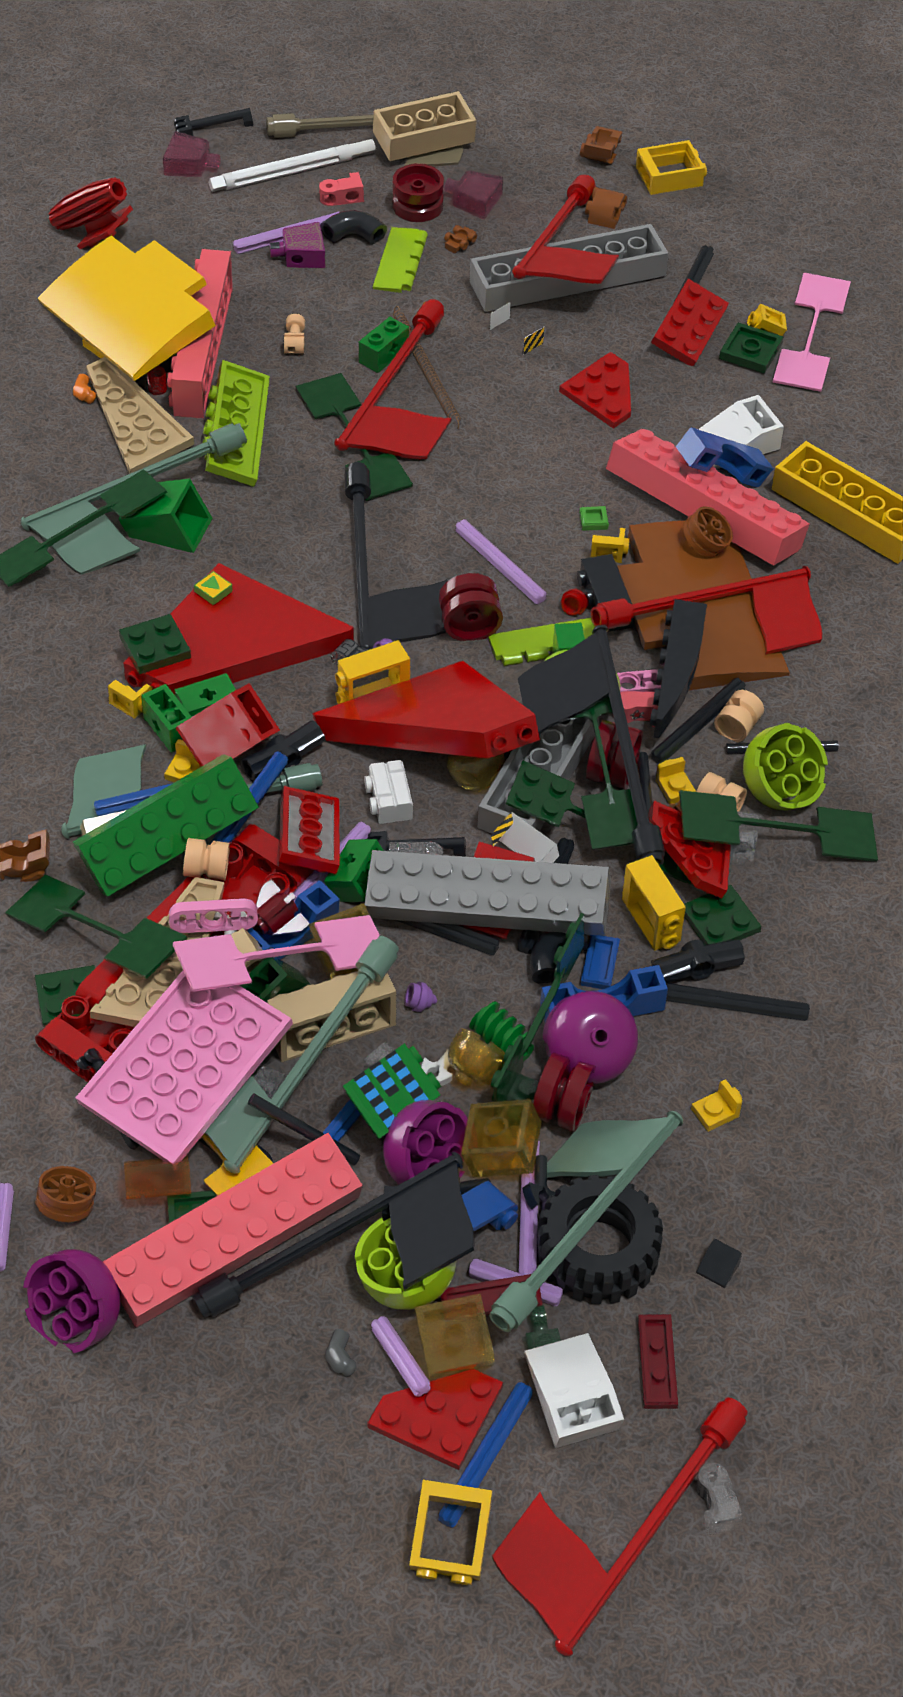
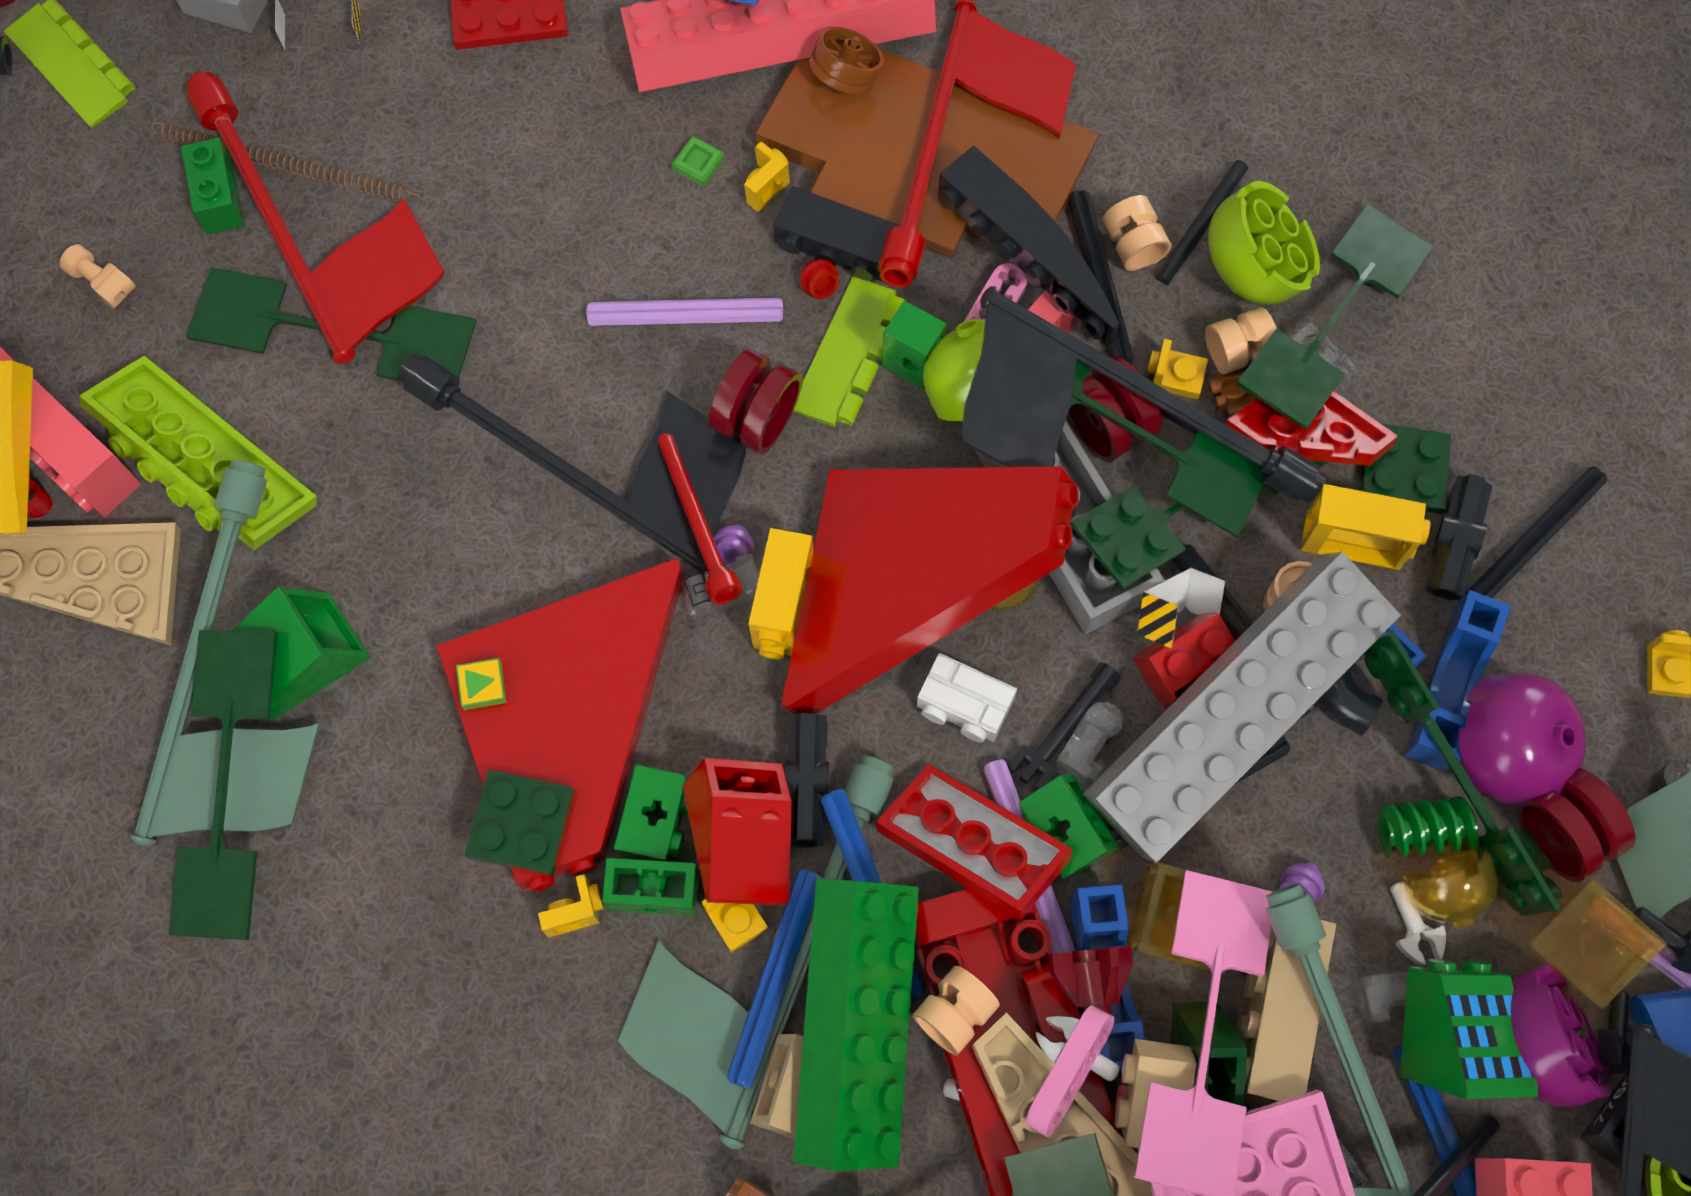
camera: 50 degrees left, 20 degrees up
(358, 644) = (722, 583): none -> red piece

